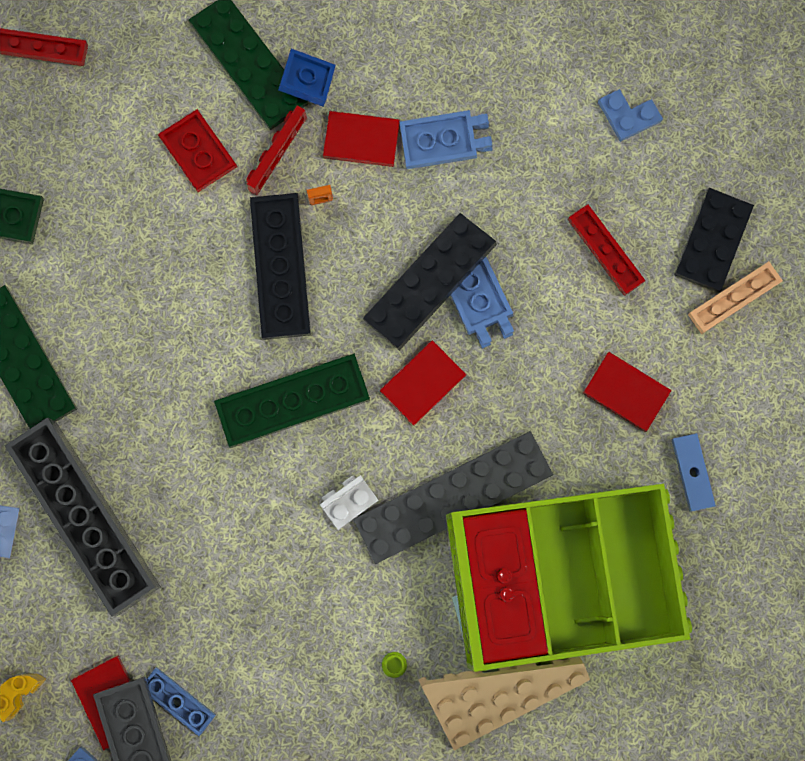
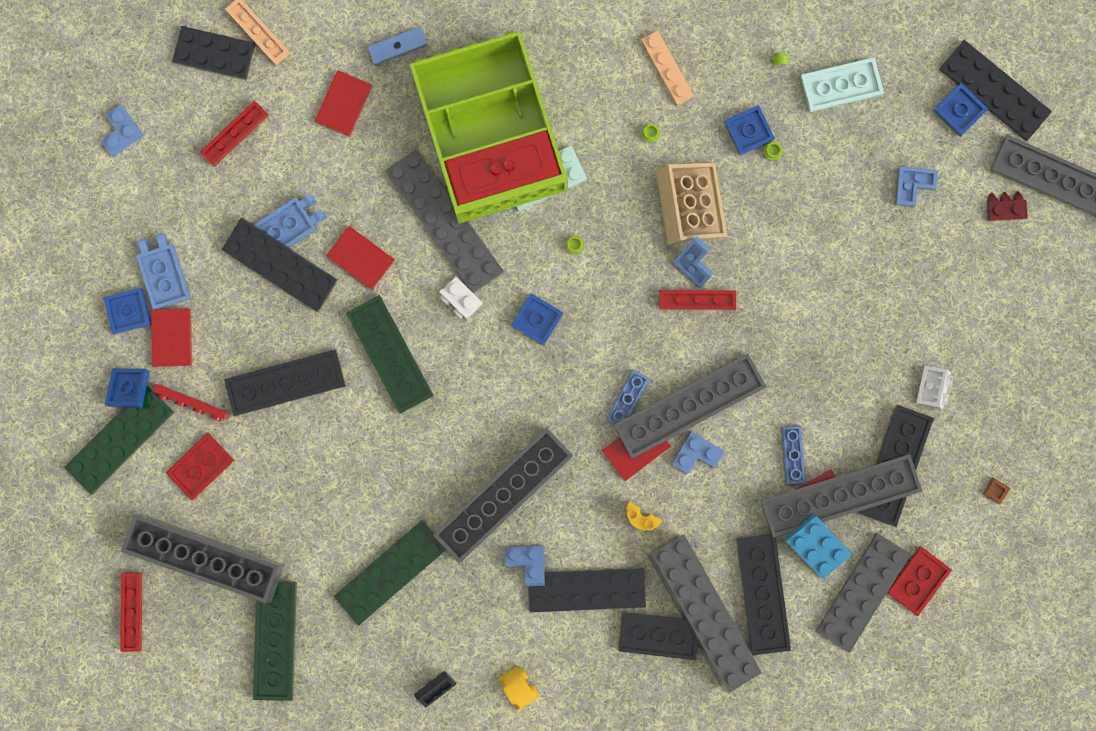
camera: 95 degrees left, 5 degrees up
(80, 136) = (202, 558): none -> dark grey brick
(303, 598) = (537, 319): none -> blue plate
(320, 195) = (223, 361): orange tile -> none
(402, 91) = (127, 311): none -> blue plate
(481, 702) = (589, 175): tan wing -> none

